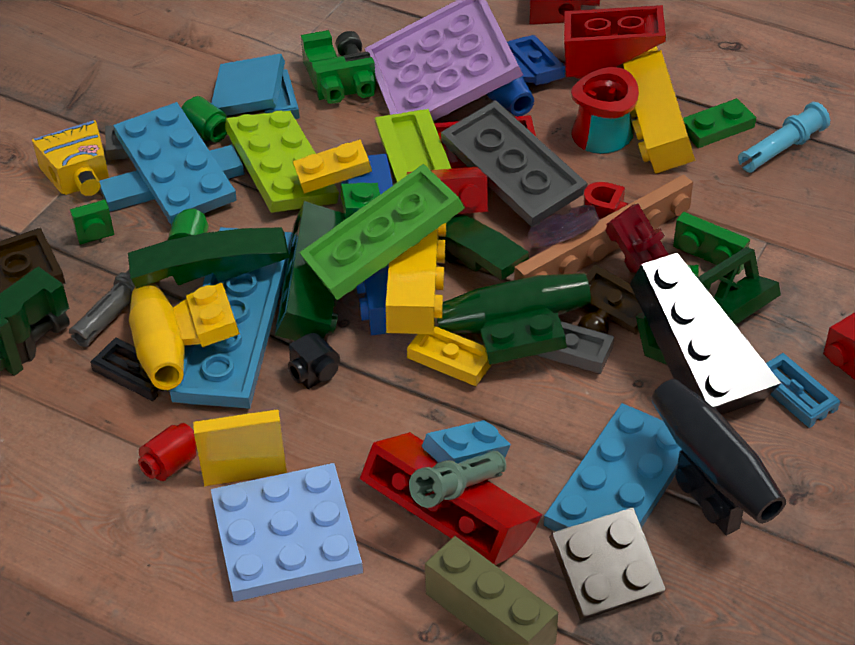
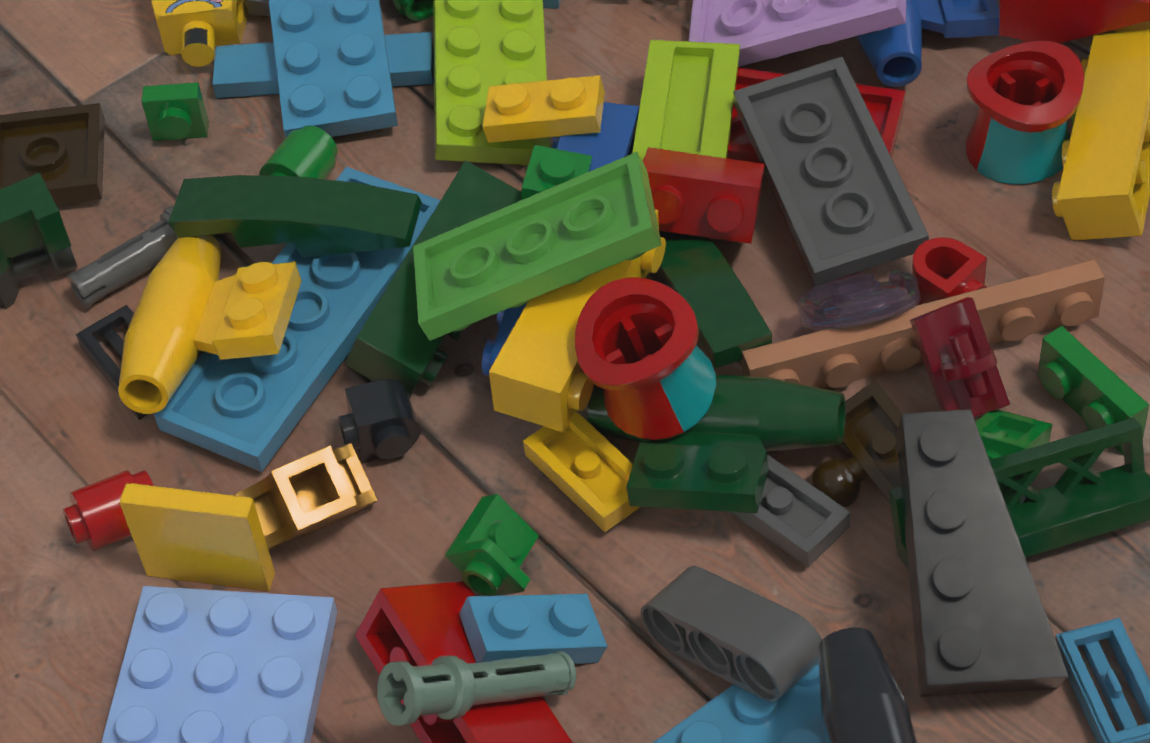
camera: 25 degrees right, 5 degrees up
(298, 405) = (310, 494): none -> pearl gold brick
(419, 409) = (493, 548): none -> green bracket
(471, 274) = (643, 352): none -> red hat
(584, 413) = (733, 633): none -> dark grey beam

